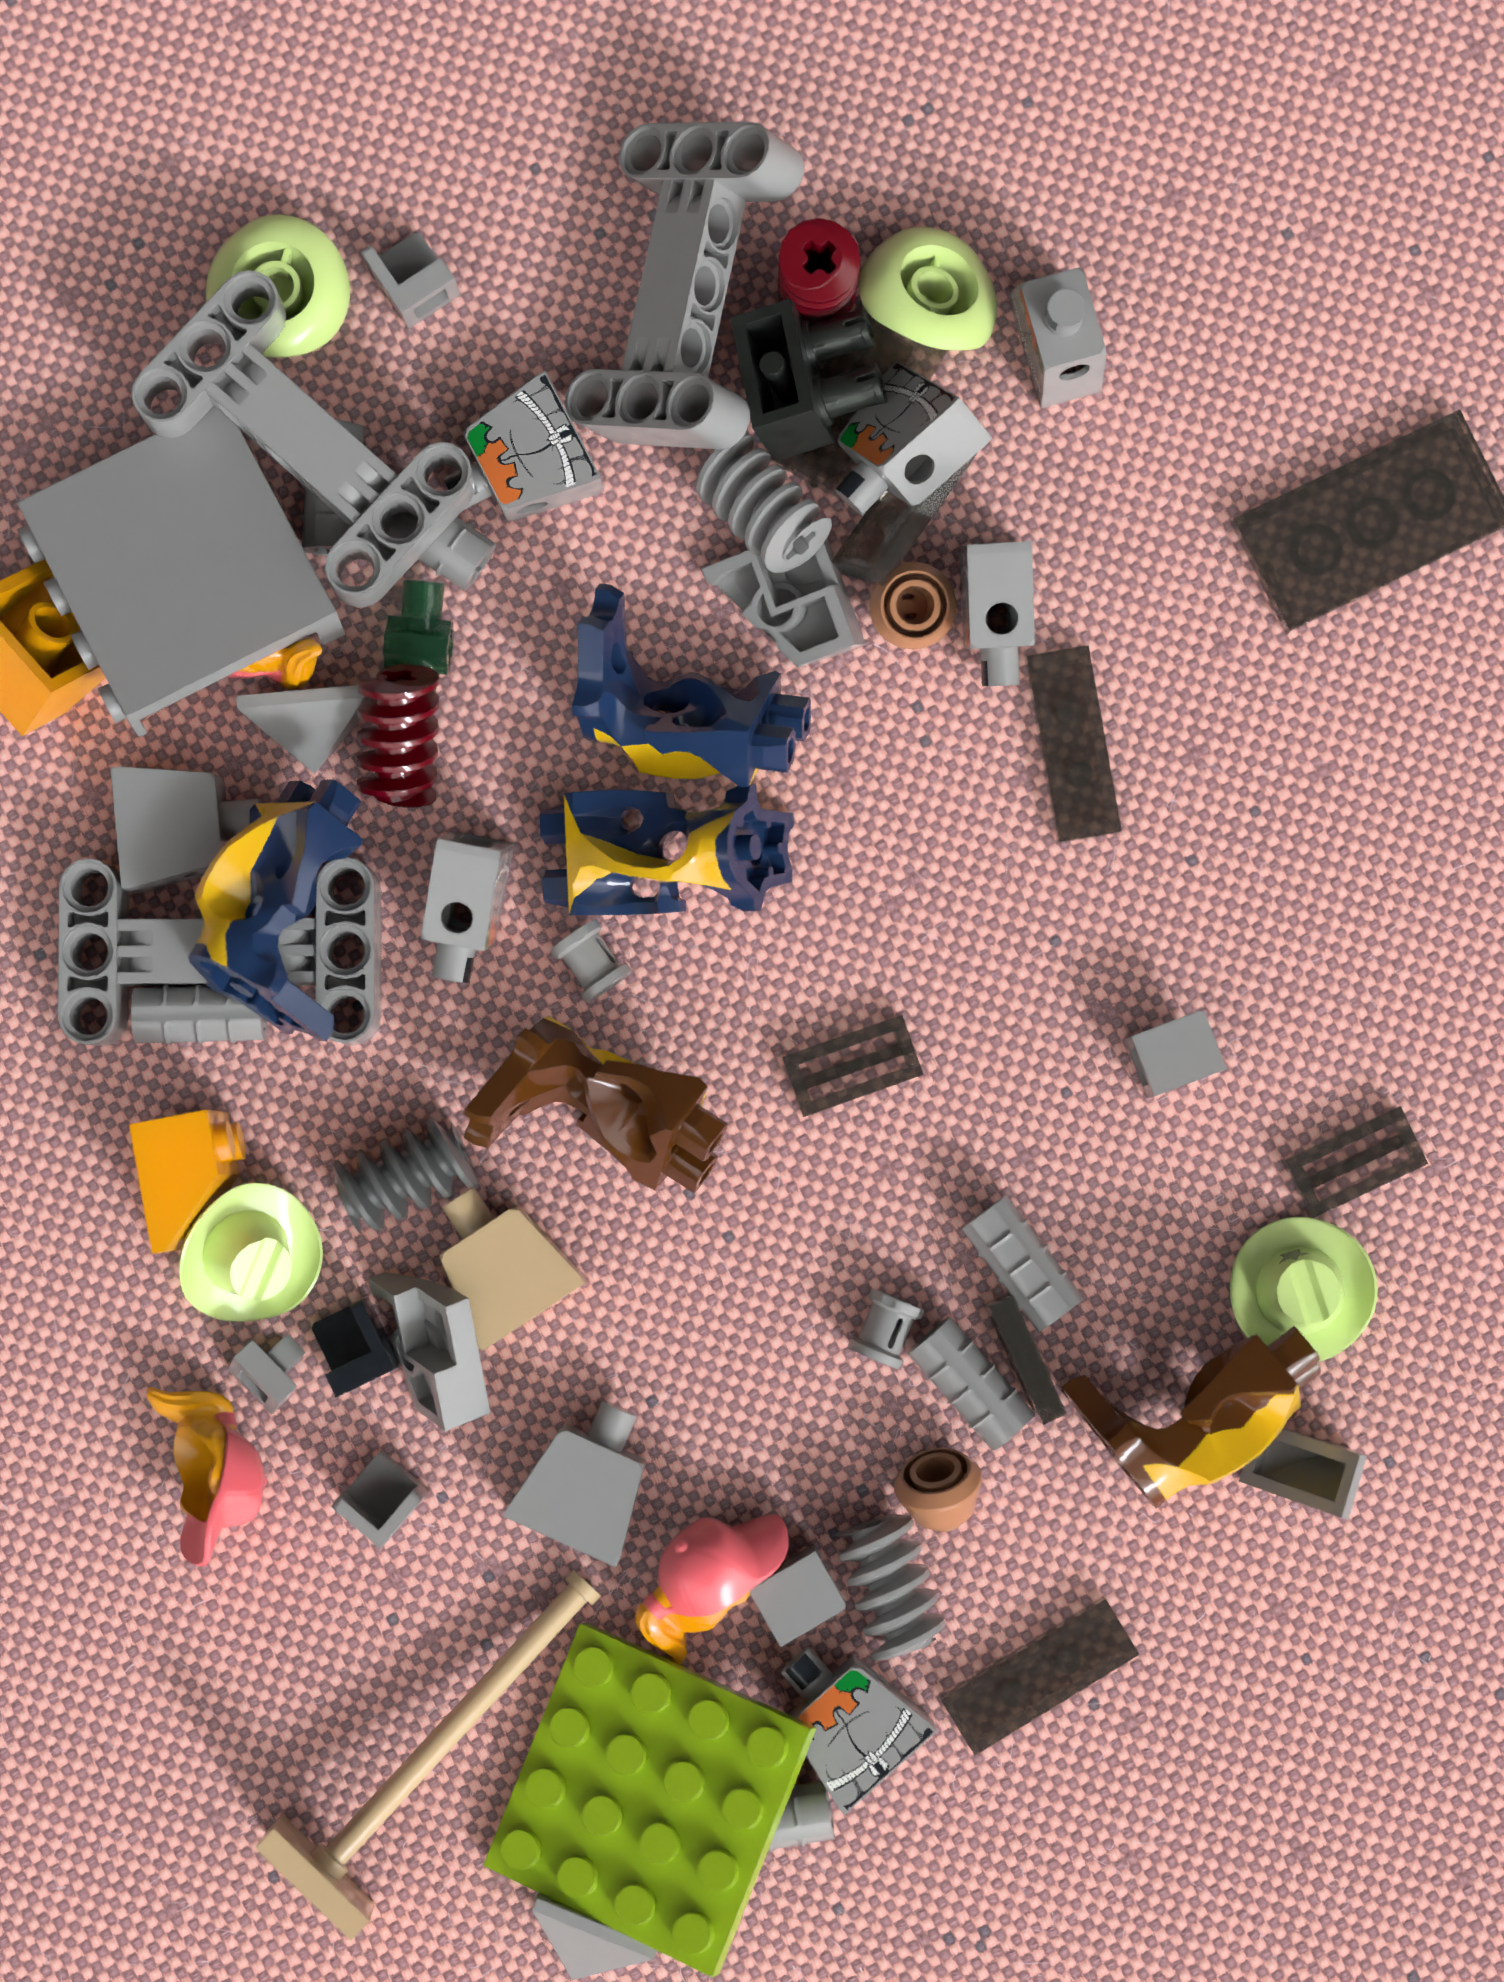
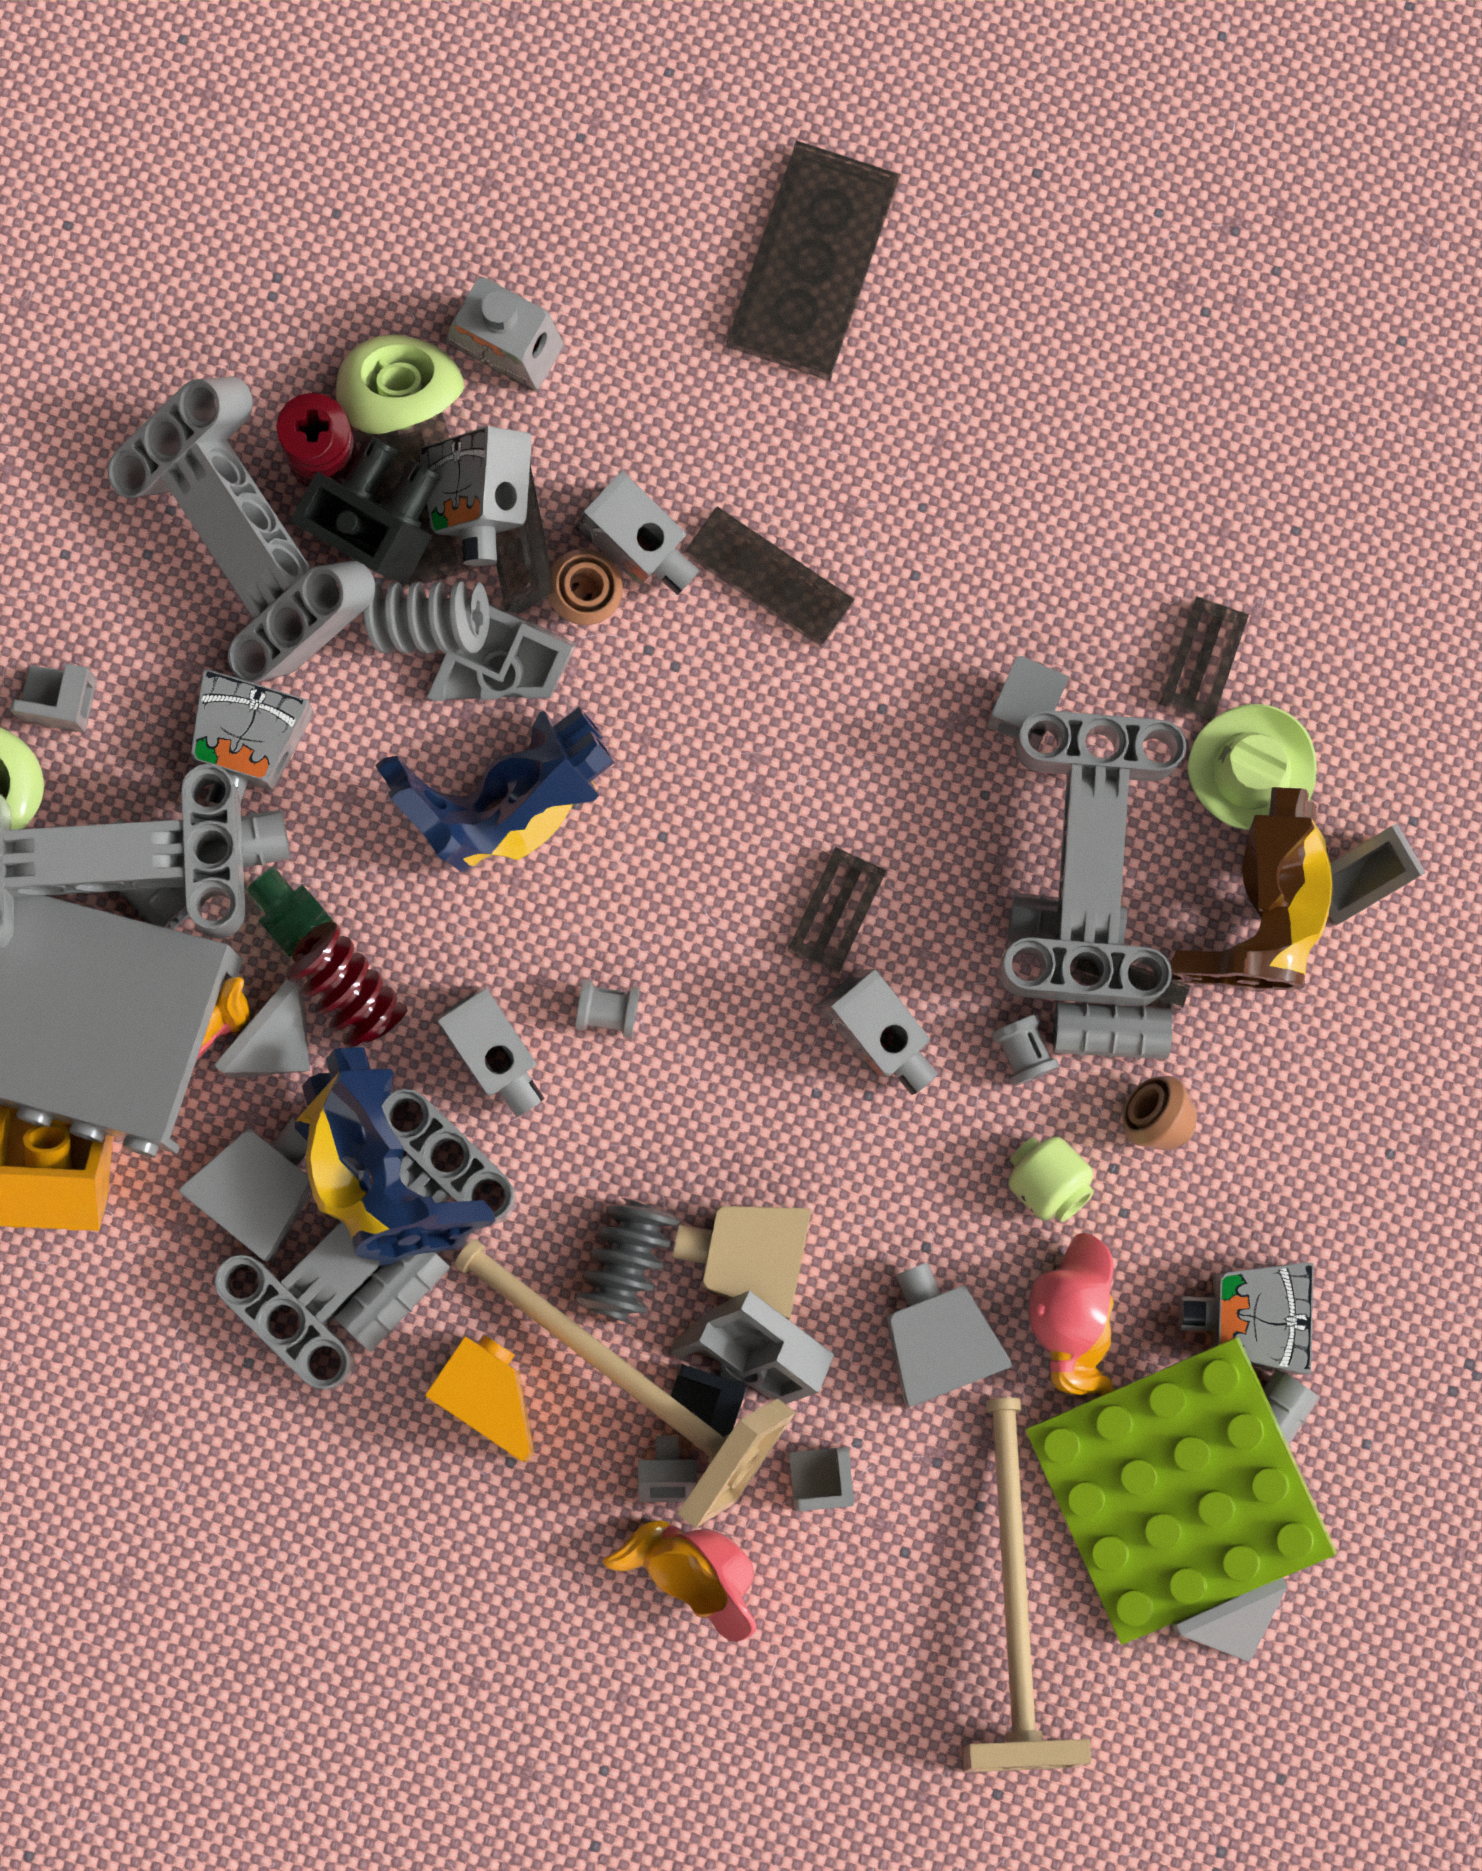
camera: 55 degrees left, 5 degrees down
(250, 1255) = (578, 1415): yellowish green hat -> none
(322, 1413) = (732, 1457): none -> tan tile
(609, 858) = (625, 849): dark blue hips -> none
(633, 1111) = (729, 1074): reddish brown hips -> none
(788, 1173) = (860, 1013): none -> light grey torso
(798, 1596) = (1143, 1270): light grey panel -> none
(801, 1450) = (1050, 1178): none -> yellowish green head
(892, 1585) = (1193, 1204): light grey piece -> none
(1039, 1675) = (1339, 1169): clear smoke tile -> none
(1094, 1232) = (1092, 856): none -> light grey beam

